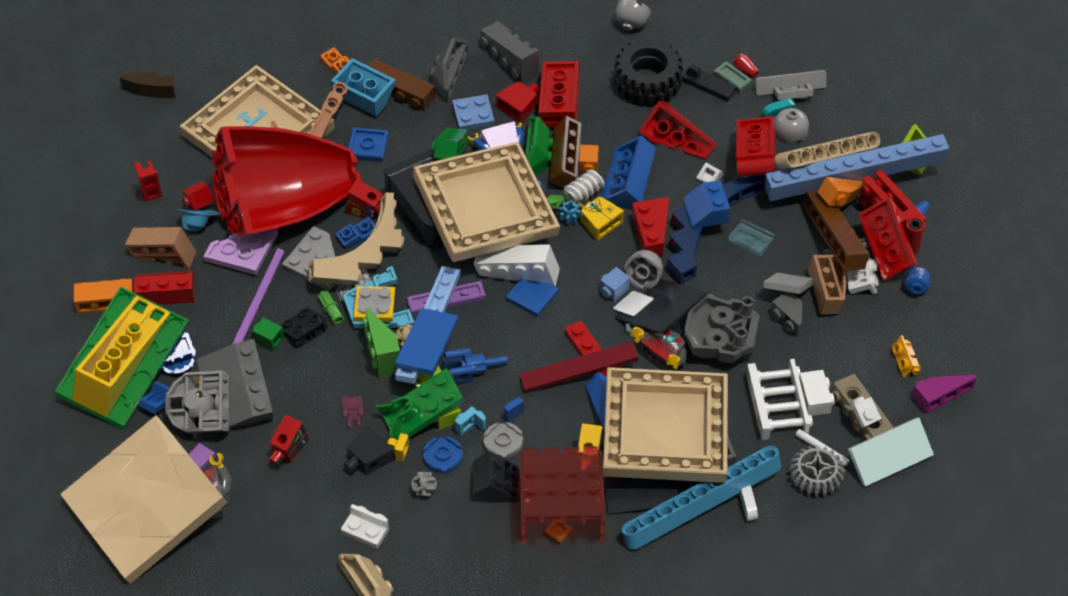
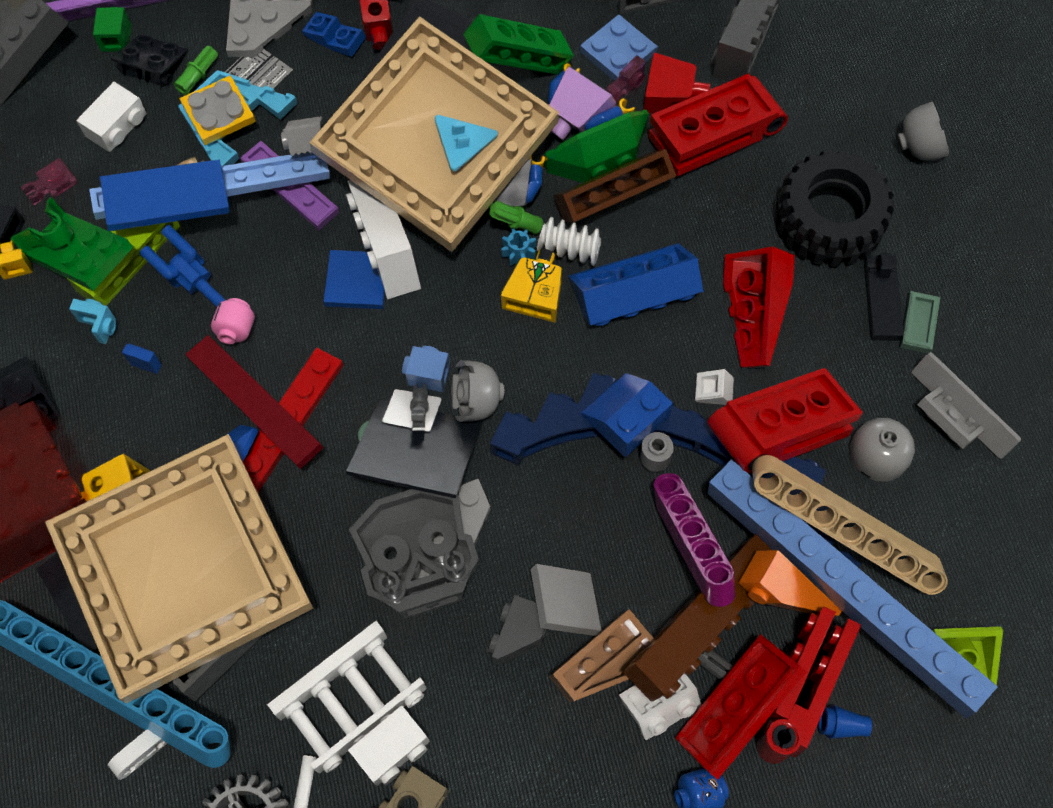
camera: 60 degrees right, 15 degrees up
(334, 359) = (111, 117): none -> white brick
(345, 268) = (291, 60): tan arch -> none
(382, 345) = (152, 142): bright green slope -> none
(429, 267) = (299, 134): none -> light grey brick
(443, 454) = (34, 317): blue tile -> none
(498, 113) = (629, 77): none -> clear pink plate
(500, 191) = (462, 140): none -> medium azure piece
(503, 440) = (92, 374): light grey tile -> none
(521, 356) = (232, 321): none -> bright pink head
(588, 158) = (627, 220): orange brick -> none
(636, 296) = (419, 406): none -> dark grey piece
(651, 223) = (559, 359): red wedge -> none
(664, 349) = (344, 495): torso -> none
(735, 211) = (656, 451): none -> light grey brick
(745, 65) = (951, 324): red cone -> none
(751, 237) = (630, 504): clear light blue plate -> none
(774, 108) = (891, 407): teal beam -> none
(794, 212) = (694, 540): none -> magenta beam

